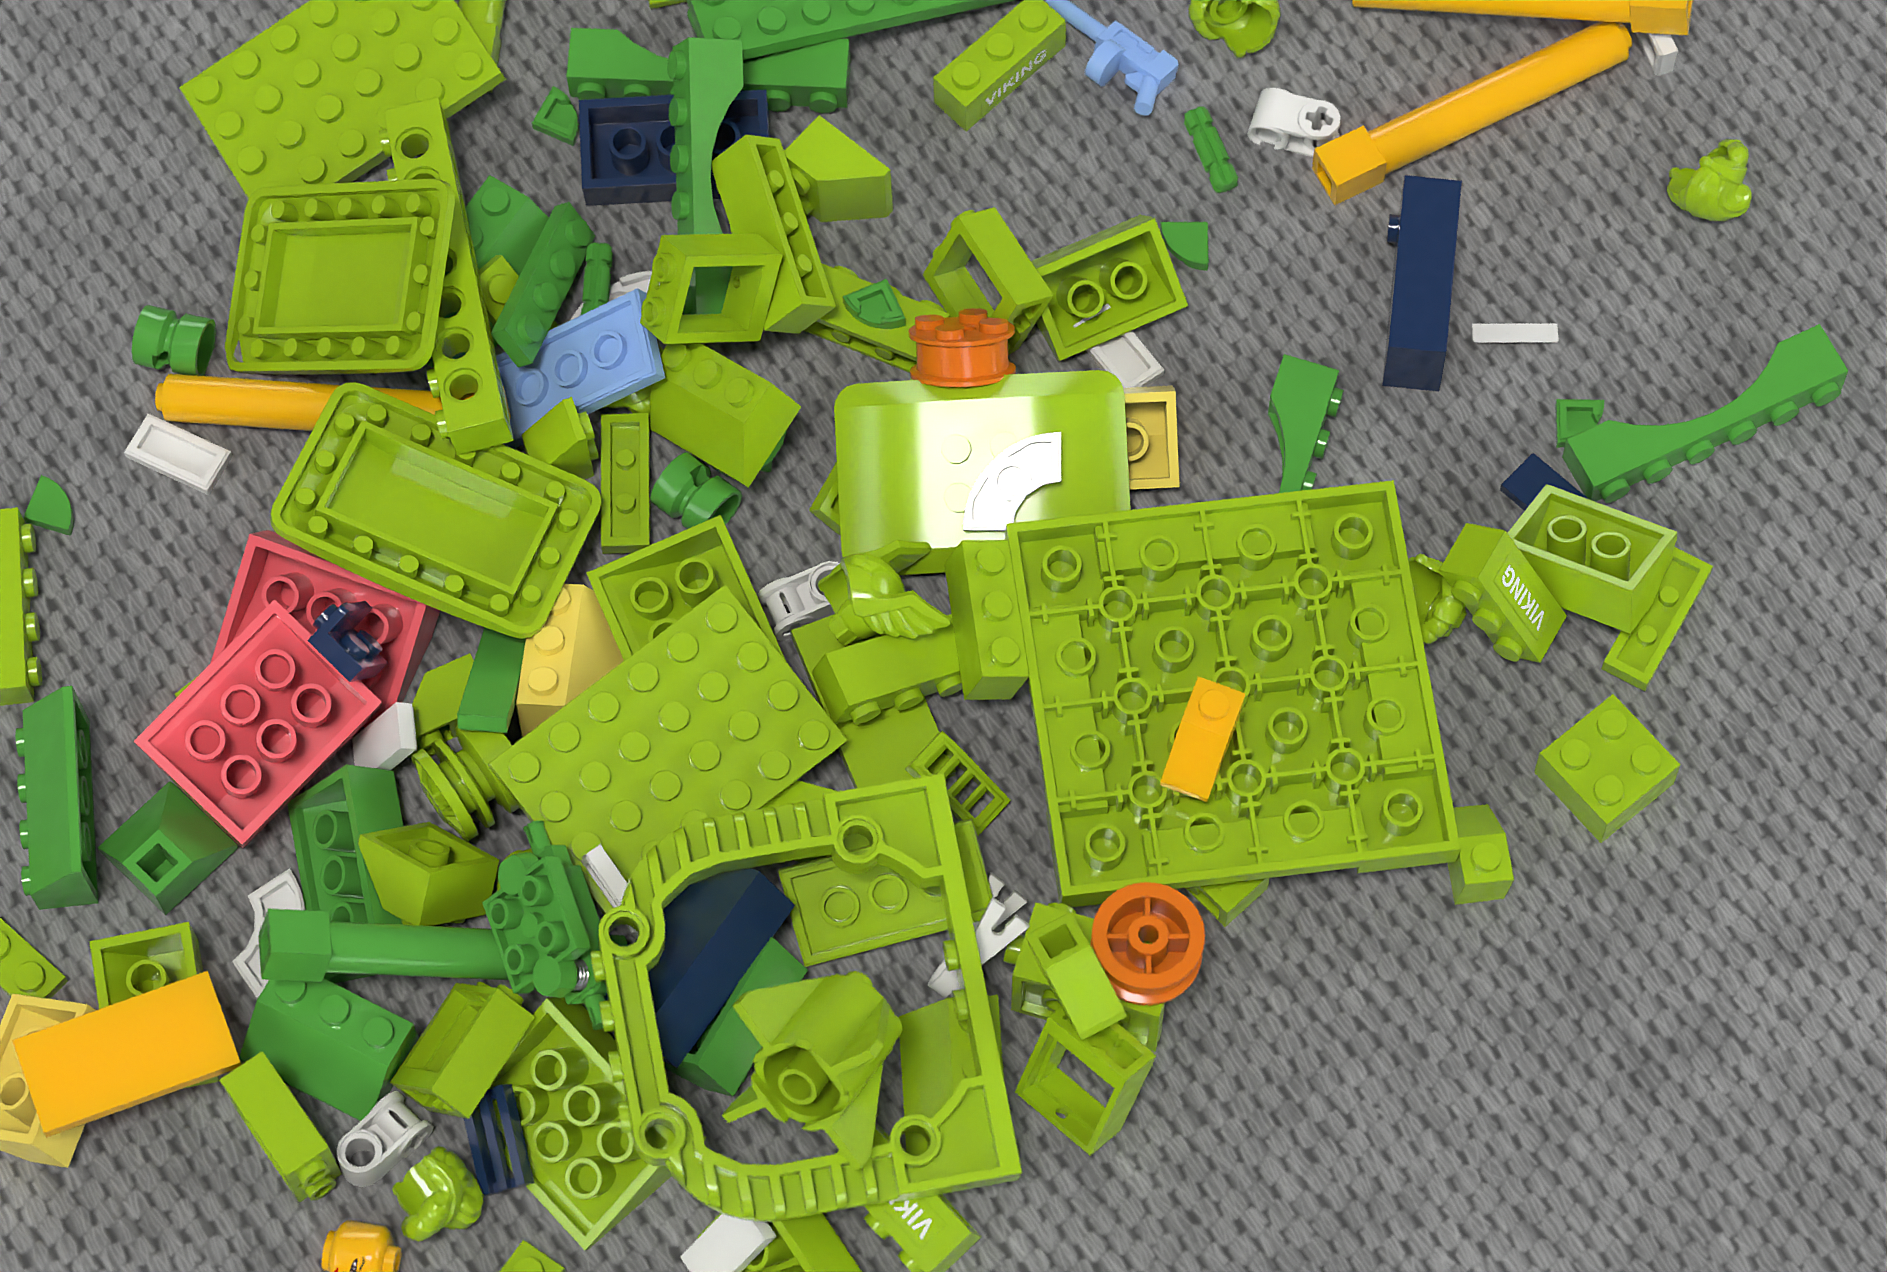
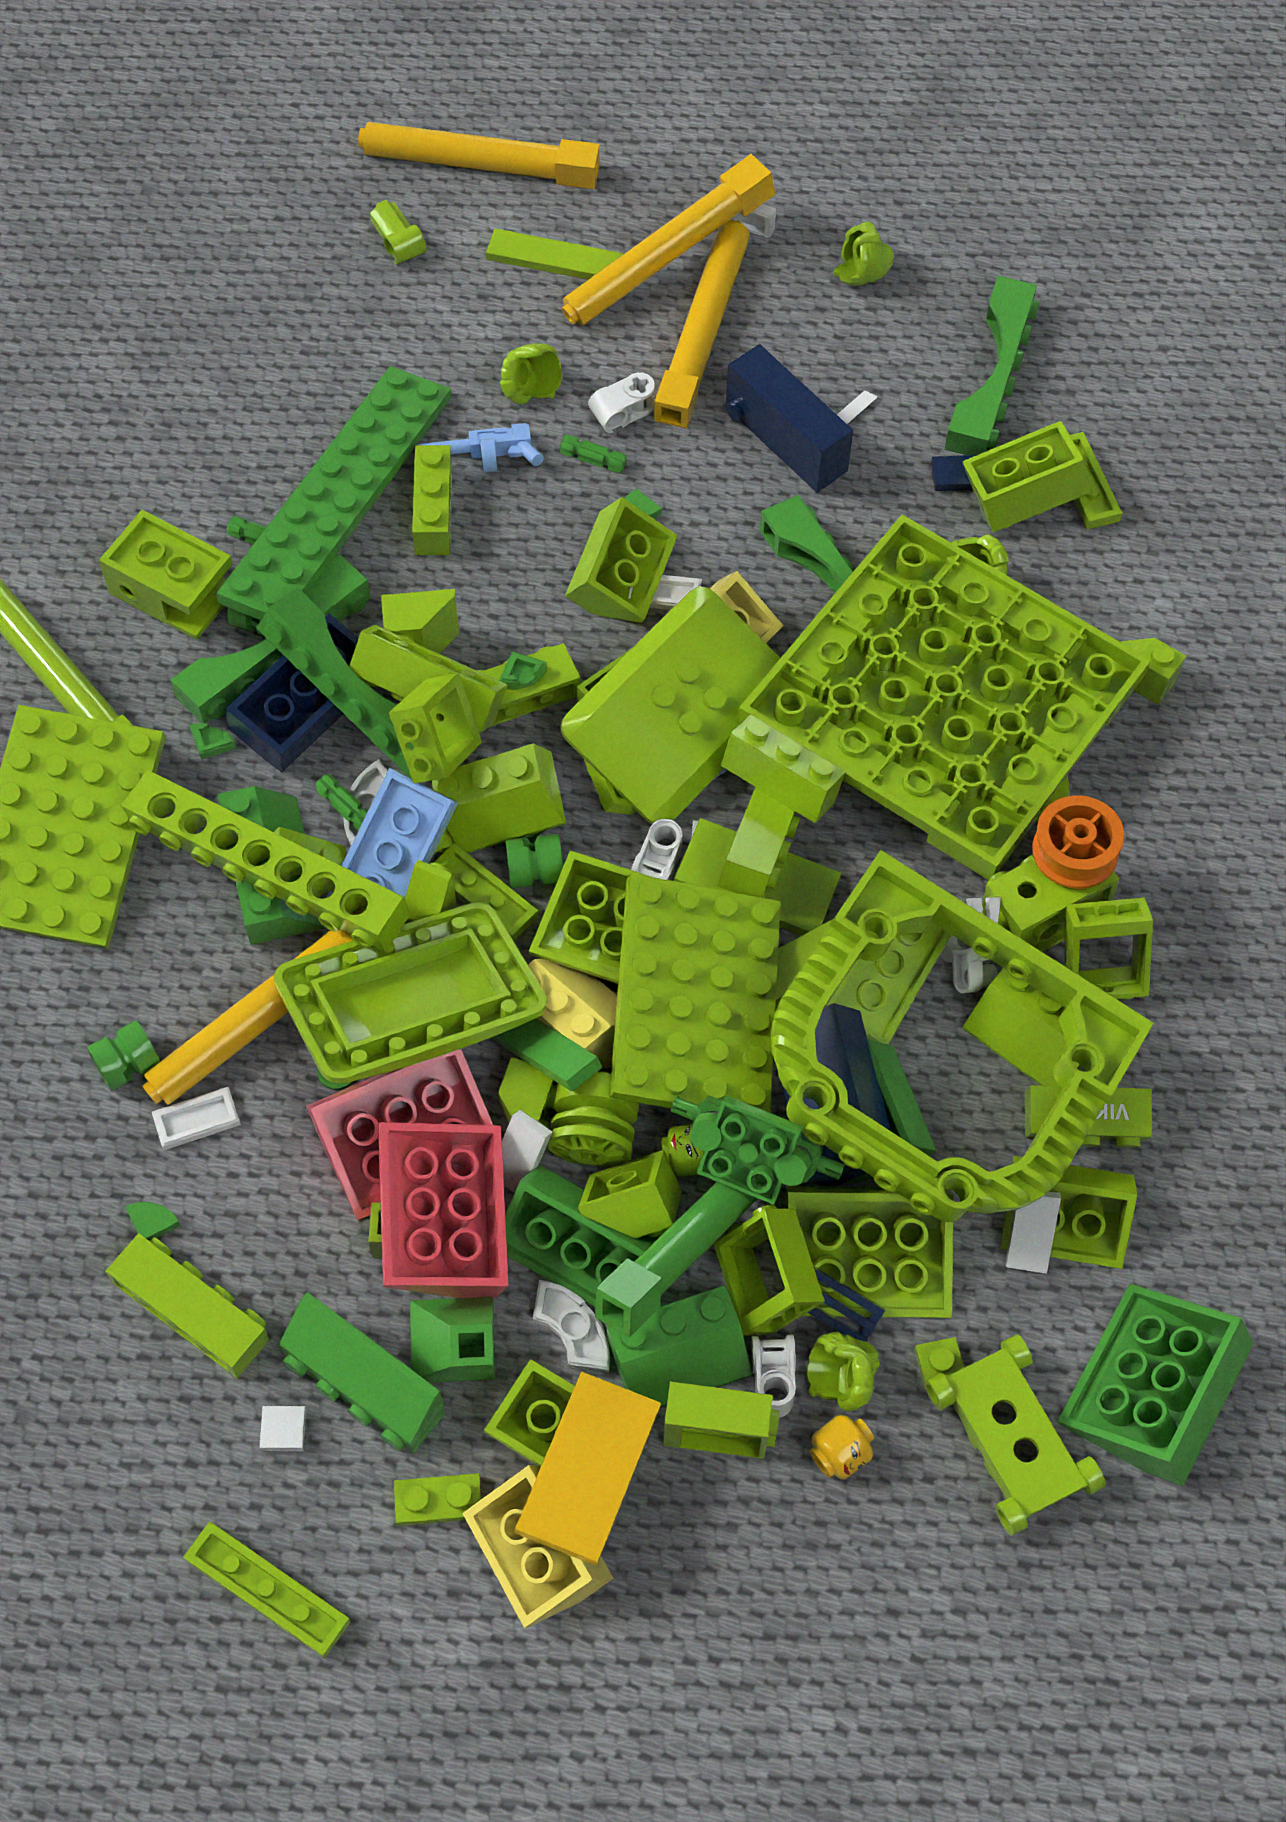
camera: 50 degrees left, 5 degrees down
(340, 277) = (202, 917): lime wedge -> none
(349, 651) = (443, 1111): dark blue bracket -> none
(543, 284) = (317, 822): bright green plate -> none
(607, 878) = (757, 1090): white tile -> none
(820, 1057) = (1009, 1052): lime brick -> none
(872, 597) = (706, 815): lime helmet -> none
(944, 744) = (825, 866): lime slope -> none
(961, 349) = (603, 645): orange wheel -> none
(1005, 263) = (573, 583): lime window -> none
(1010, 479) = (712, 685): white tile -> none
(1075, 976) = (1068, 889): lime slope -> none
(1202, 739) = (974, 716): yellow slope -> none
(1502, 593) = (1015, 522): lime brick -> none
(1575, 417) = (930, 425): bright green tile -> none
(1607, 768) = (1154, 568): lime brick -> none

